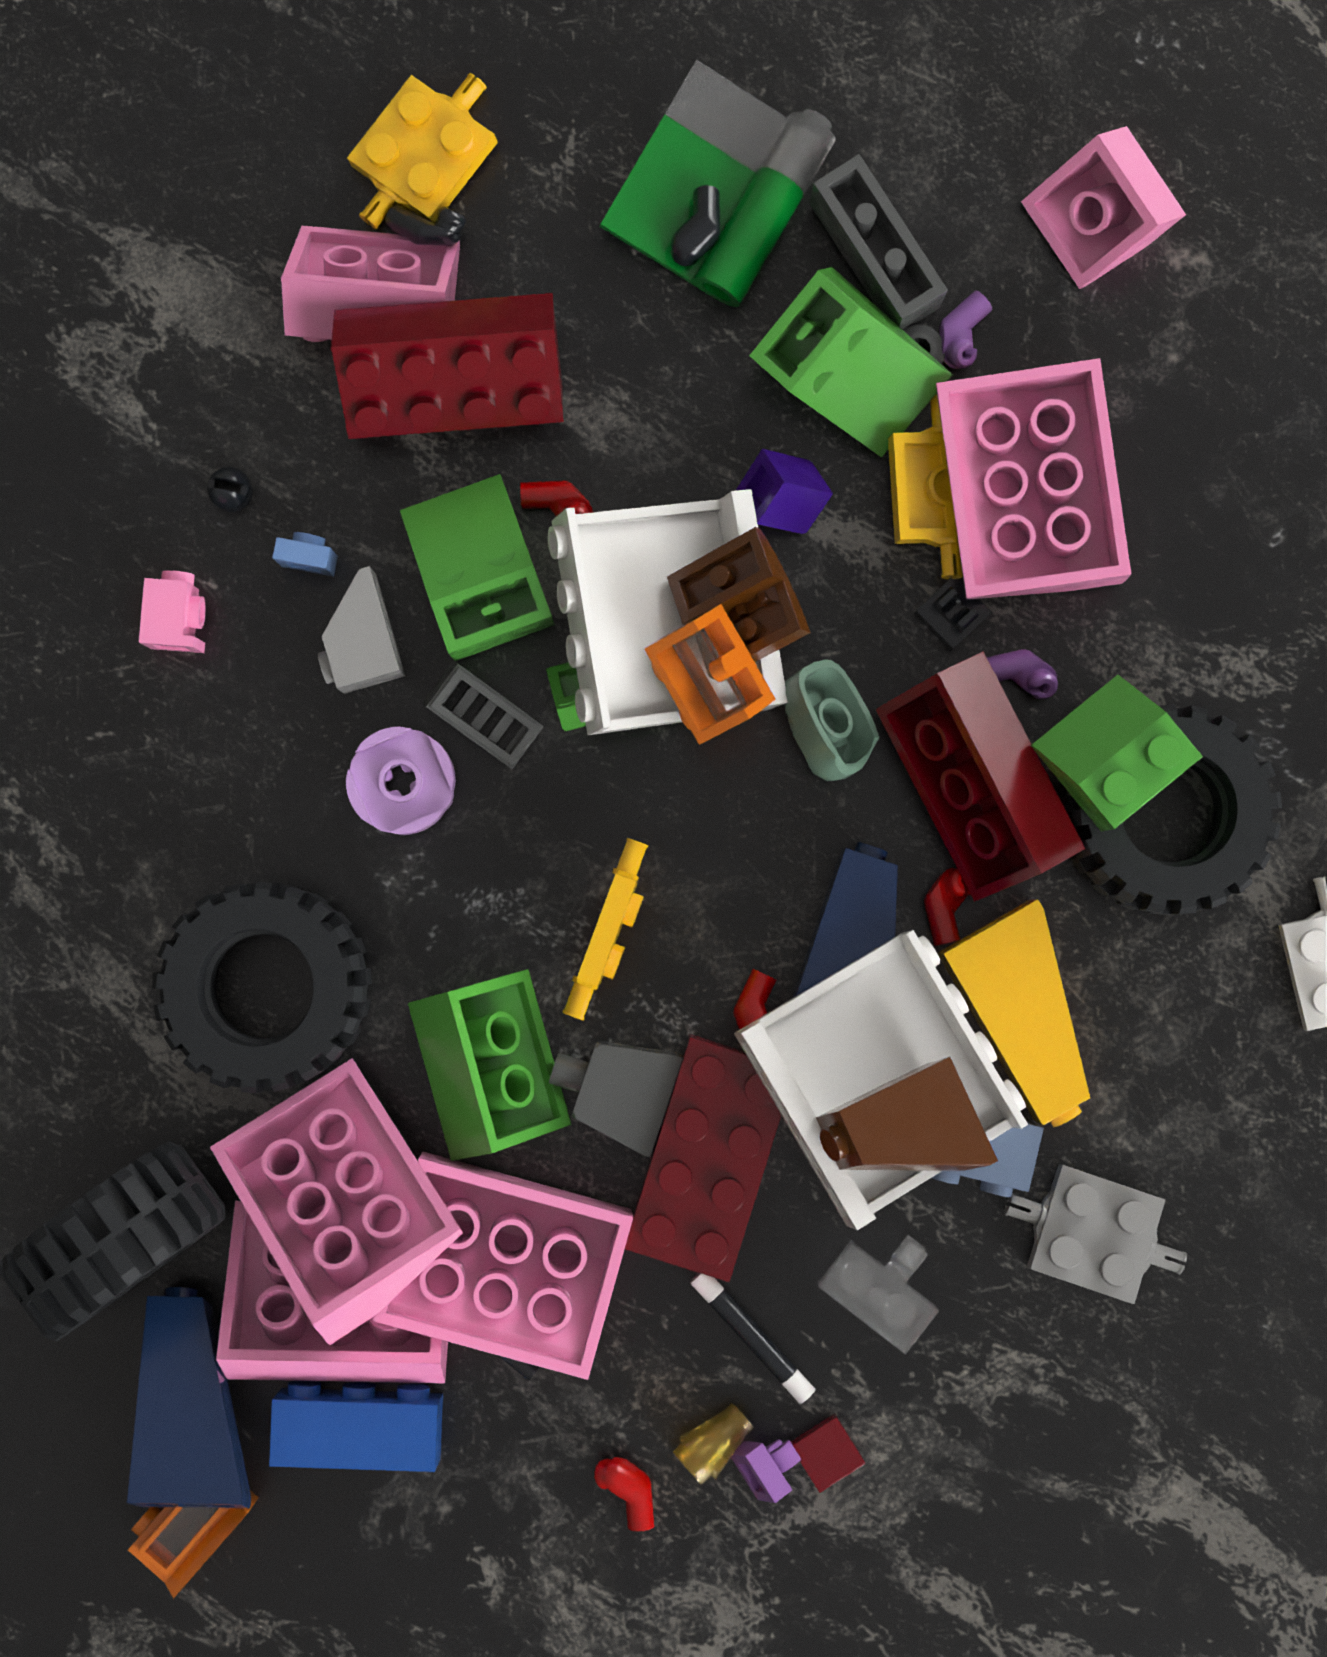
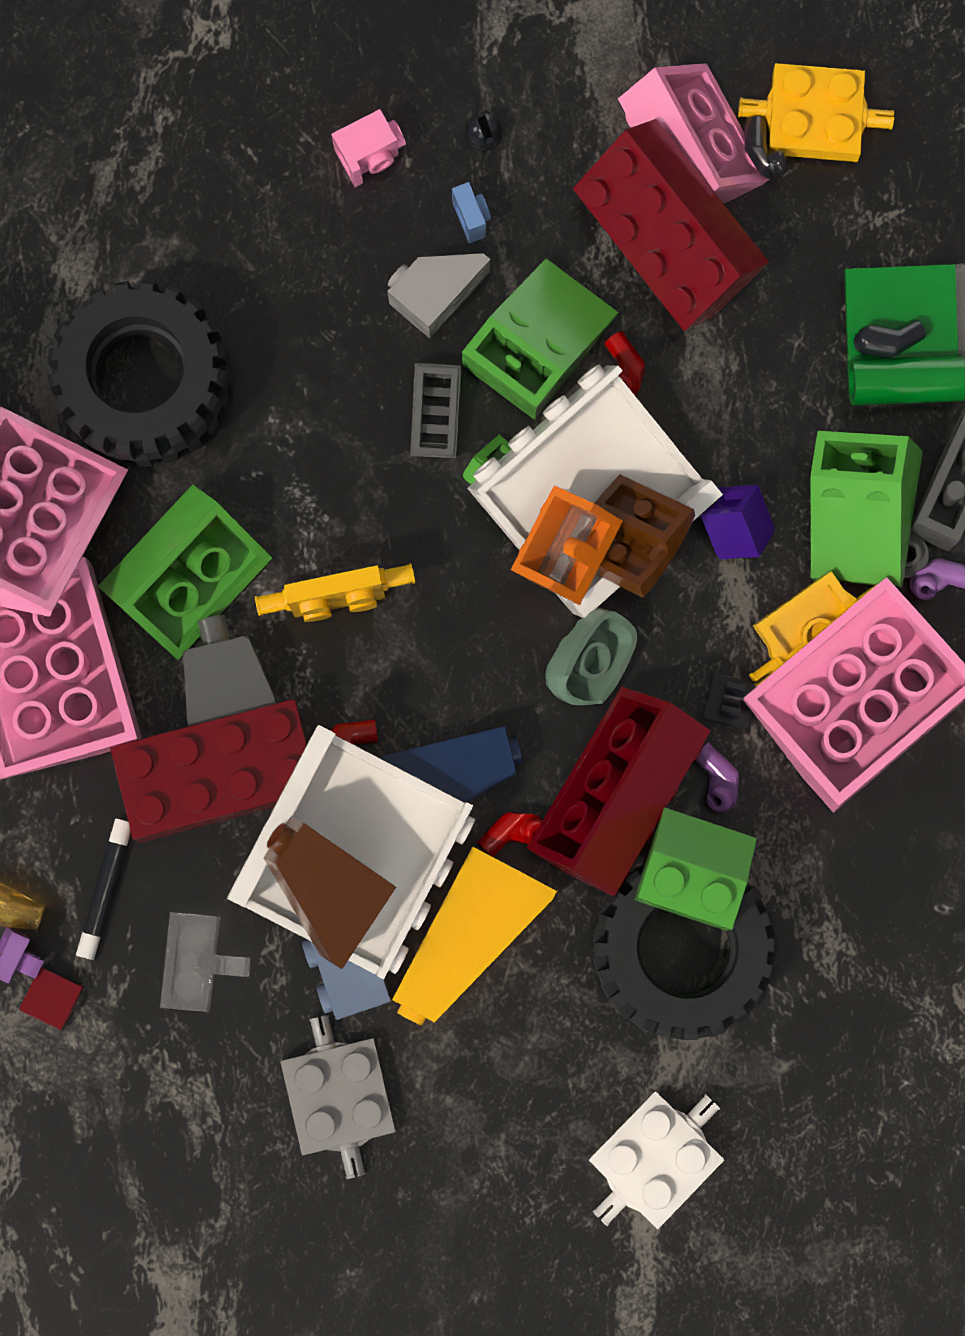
camera: 55 degrees right, 5 degrees down
(373, 767) = (347, 355): lavender plate -> none

